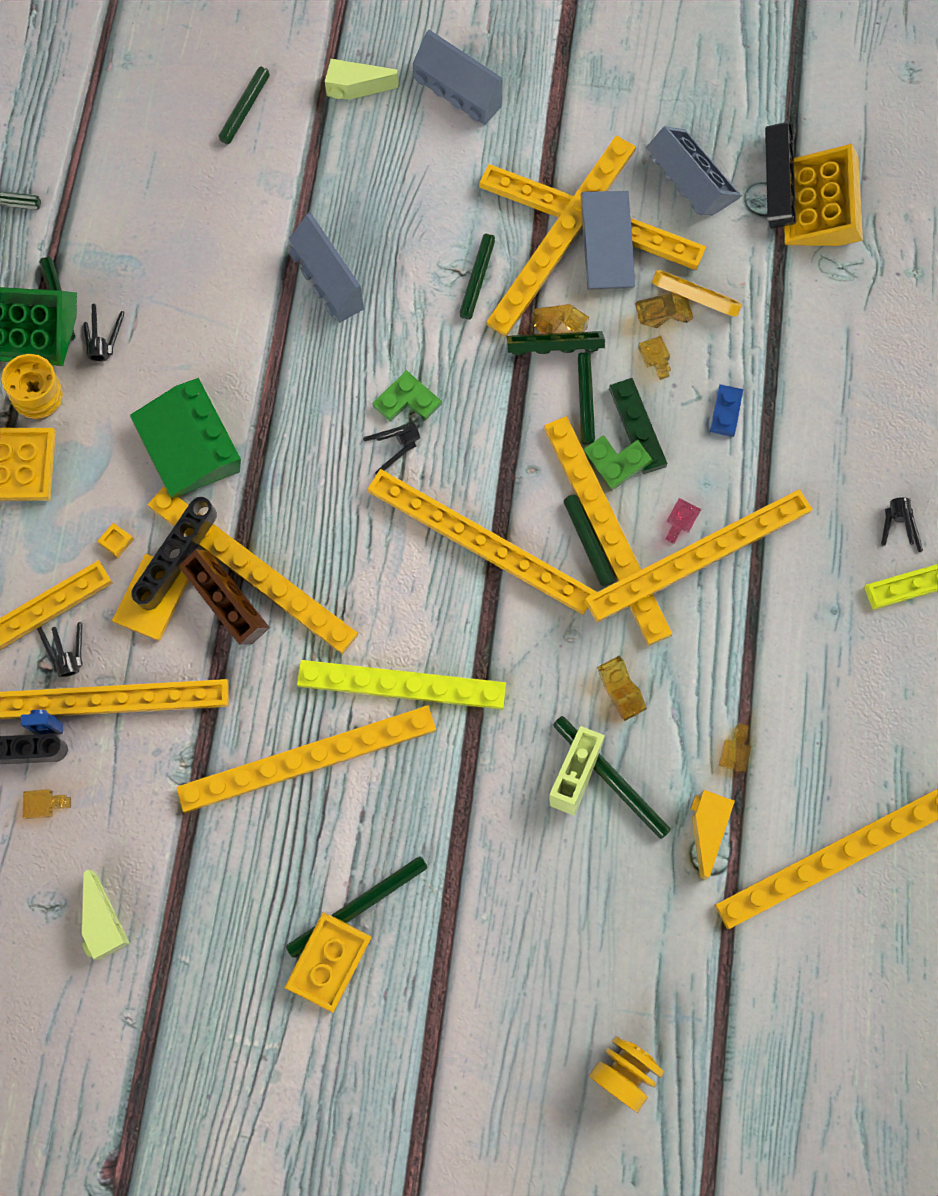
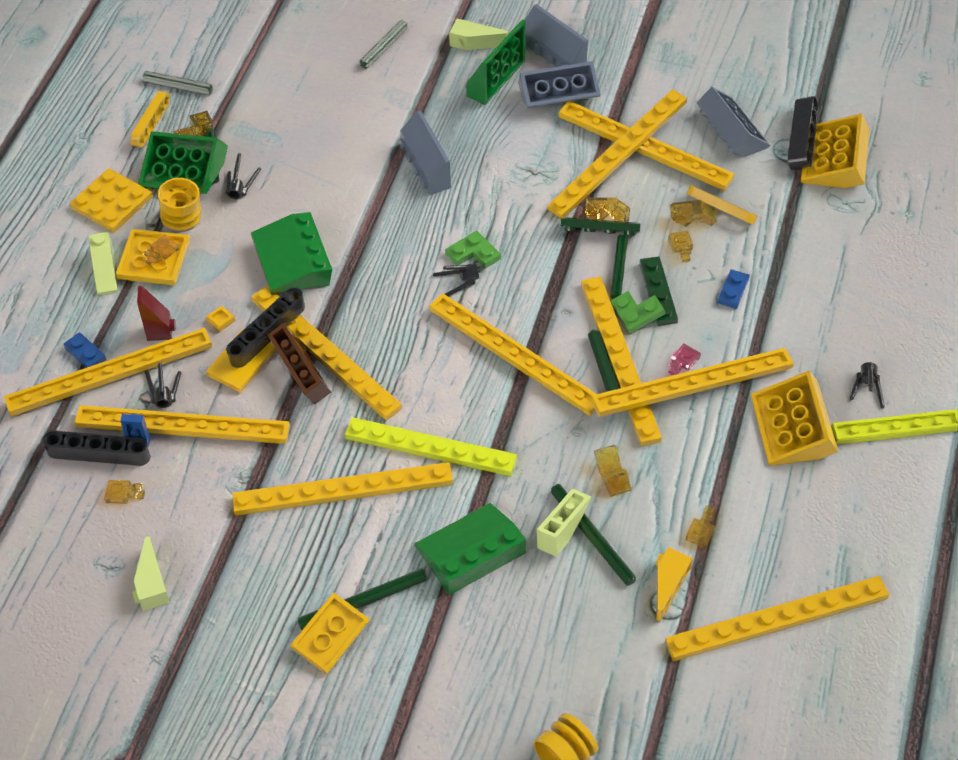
camera: 10 degrees right, 20 degrees down
(22, 454) = (161, 248): none -> clear yellow plate
(32, 270) = (200, 125): none -> clear yellow slope
(33, 559) = (154, 316): none -> dark red slope
(394, 125) = (498, 66): none -> green slope
(471, 816) = (472, 547): none -> green slope
(474, 144) = (559, 84): none -> sand blue slope
(477, 276) = (545, 175): dark green axle -> none
(607, 240) = (654, 159): sand blue tile -> none
(822, 589) = (794, 421): none -> yellow slope

